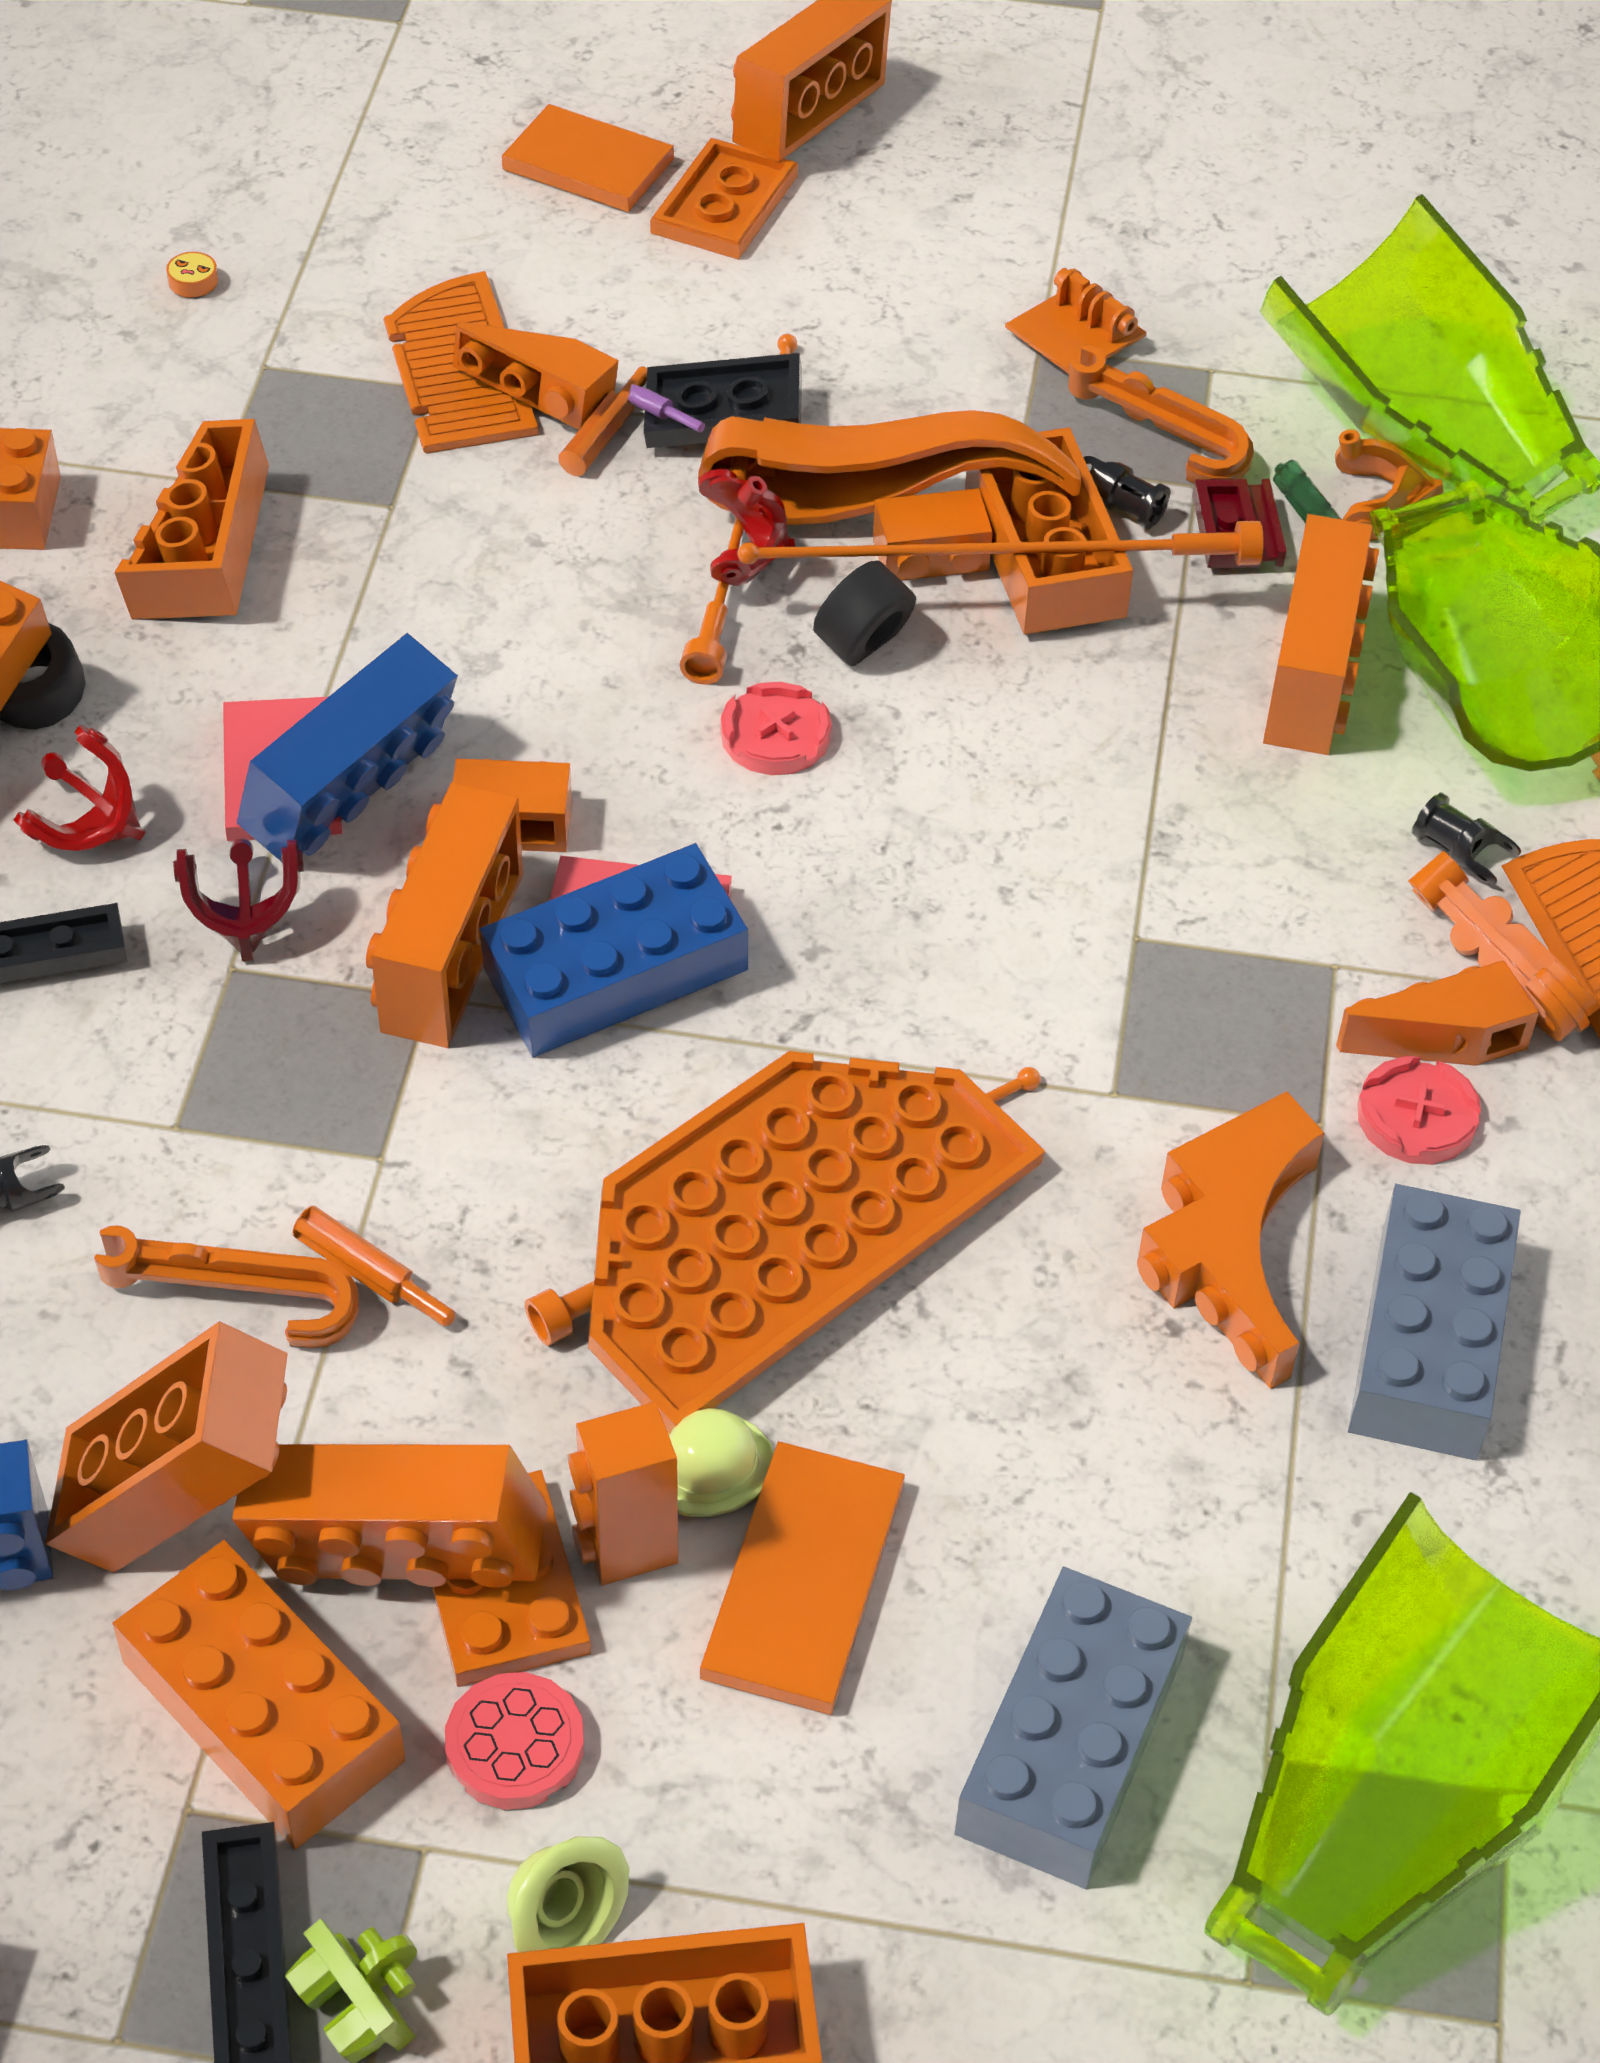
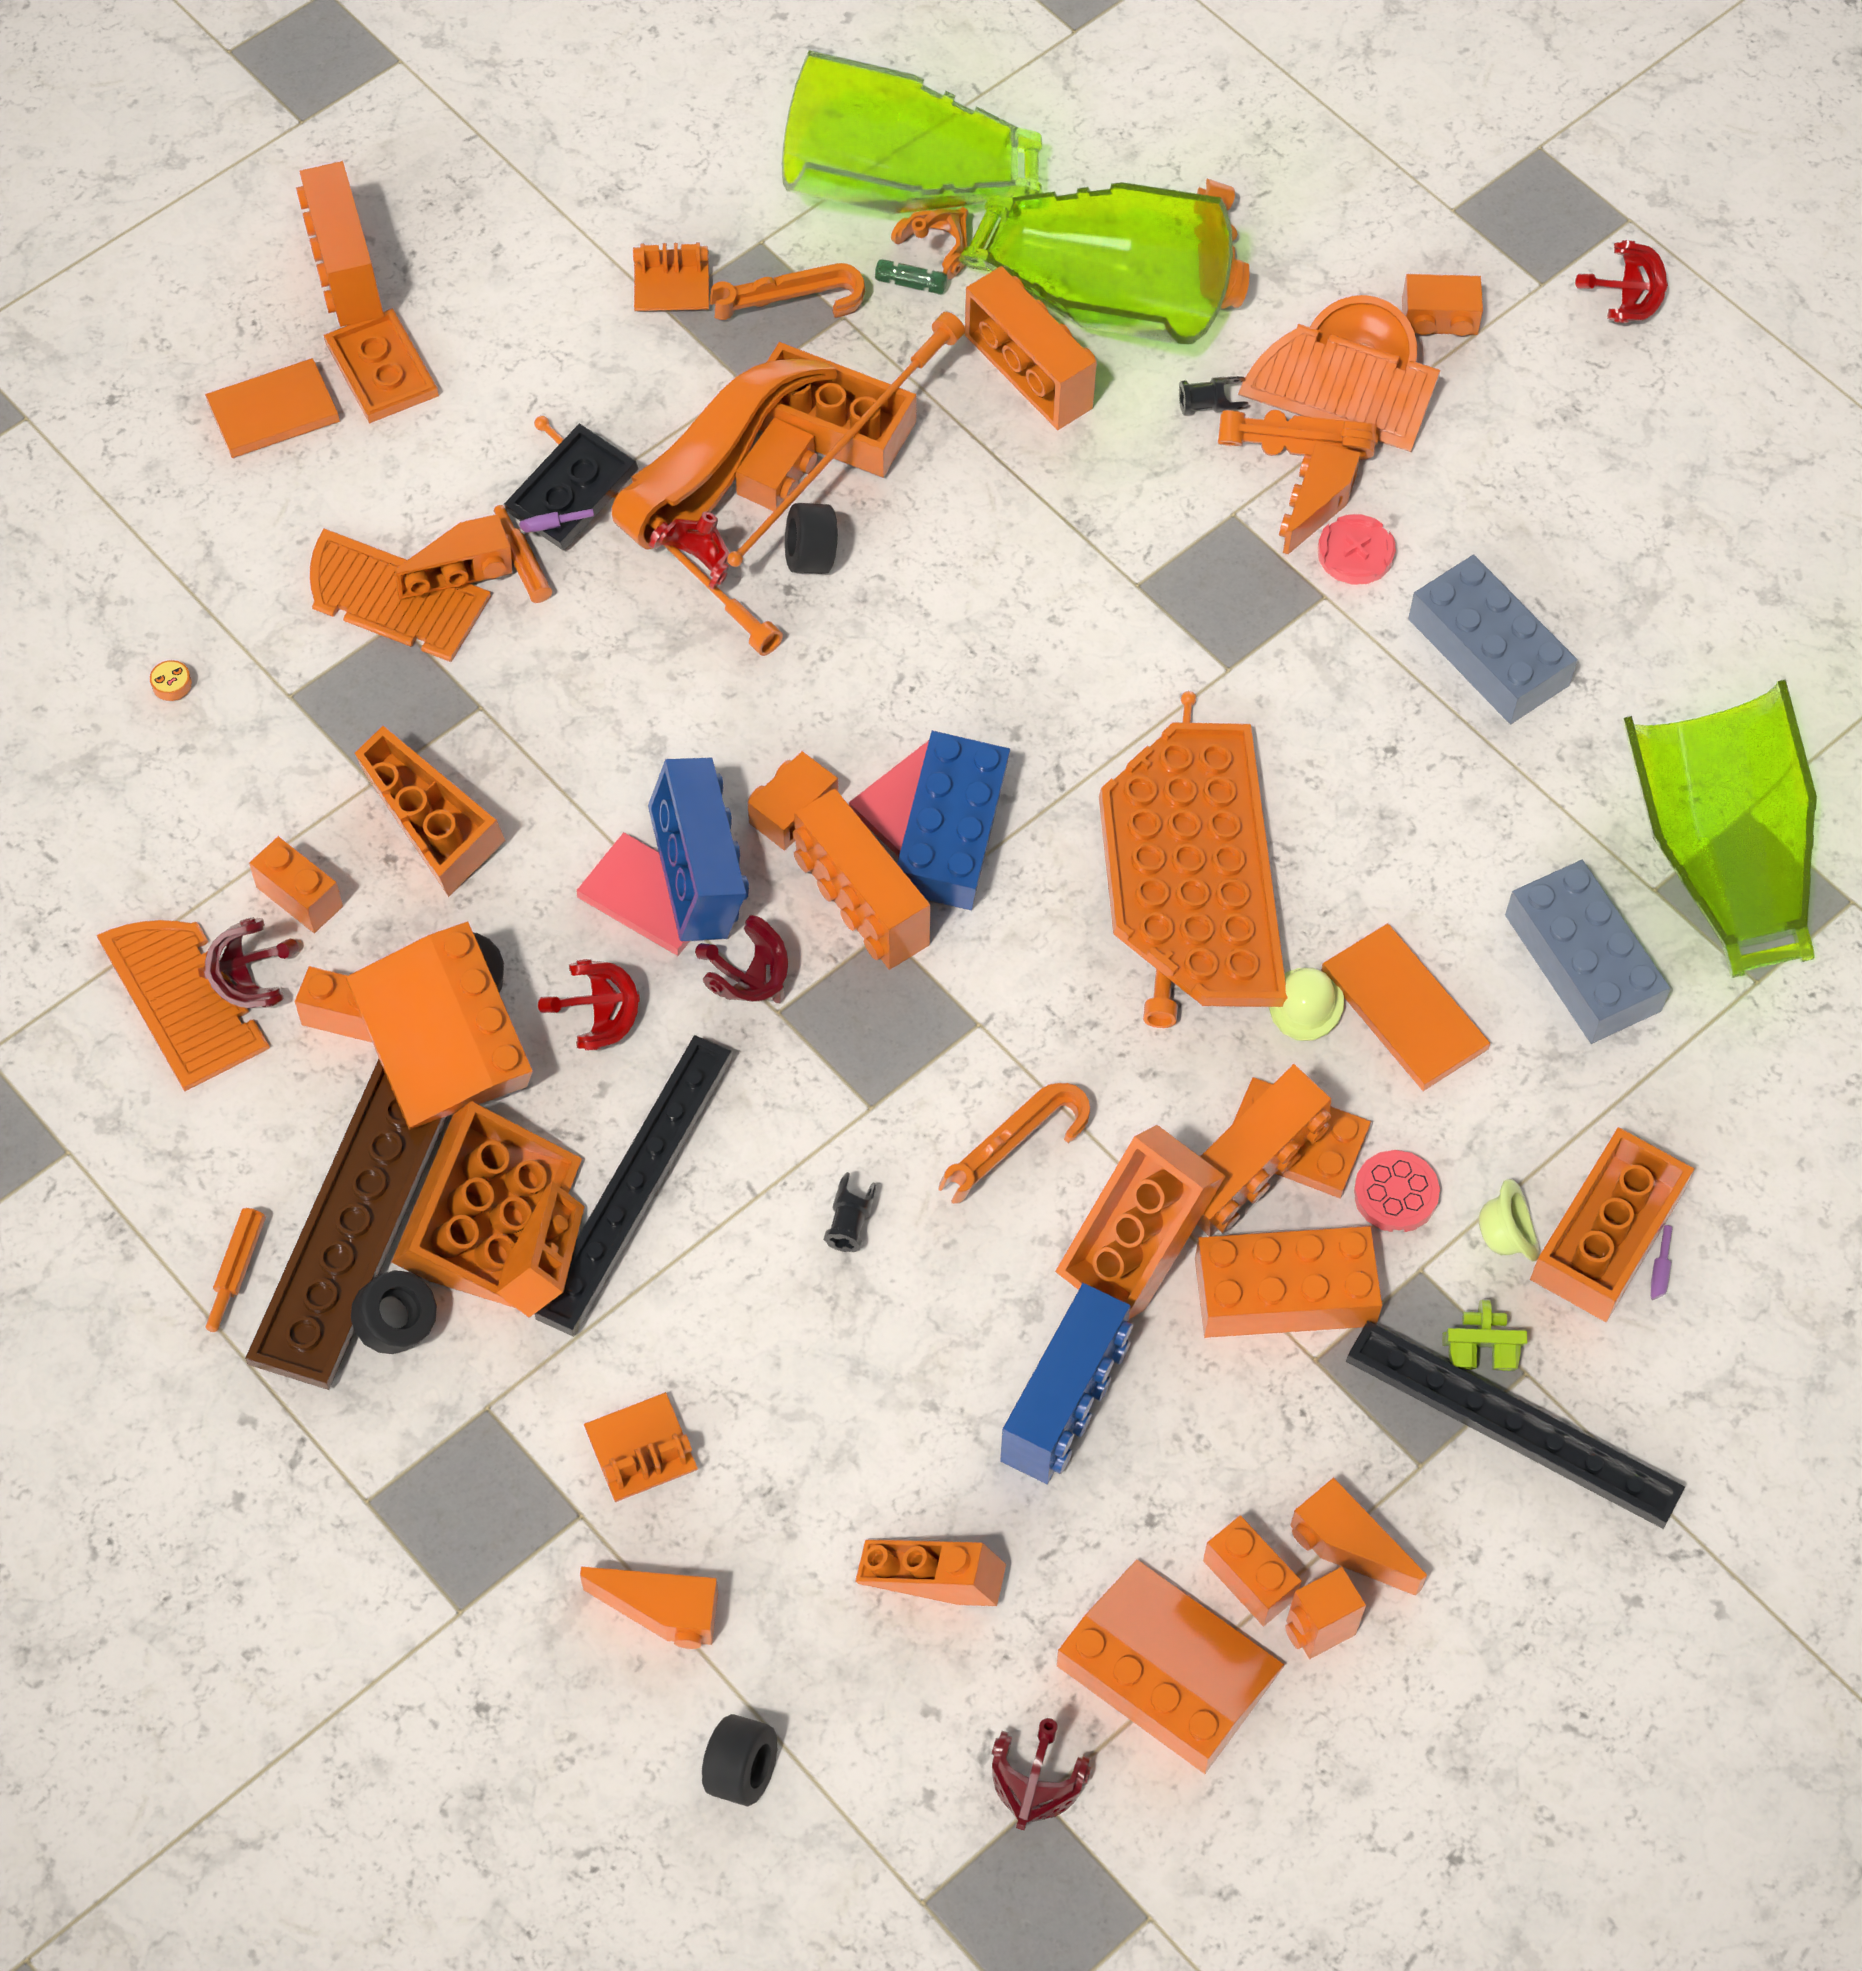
camera: 50 degrees left, 10 degrees up
(366, 1263) = (1051, 1072): orange axle -> none
(625, 1493) = (1329, 1037): orange brick -> none
(775, 728) = (843, 640): coral tile -> none
(1129, 493) = (821, 347): black piece -> none
(1210, 1244) = (1372, 695): orange arch -> none
(1226, 501) = (897, 319): dark red plate -> none

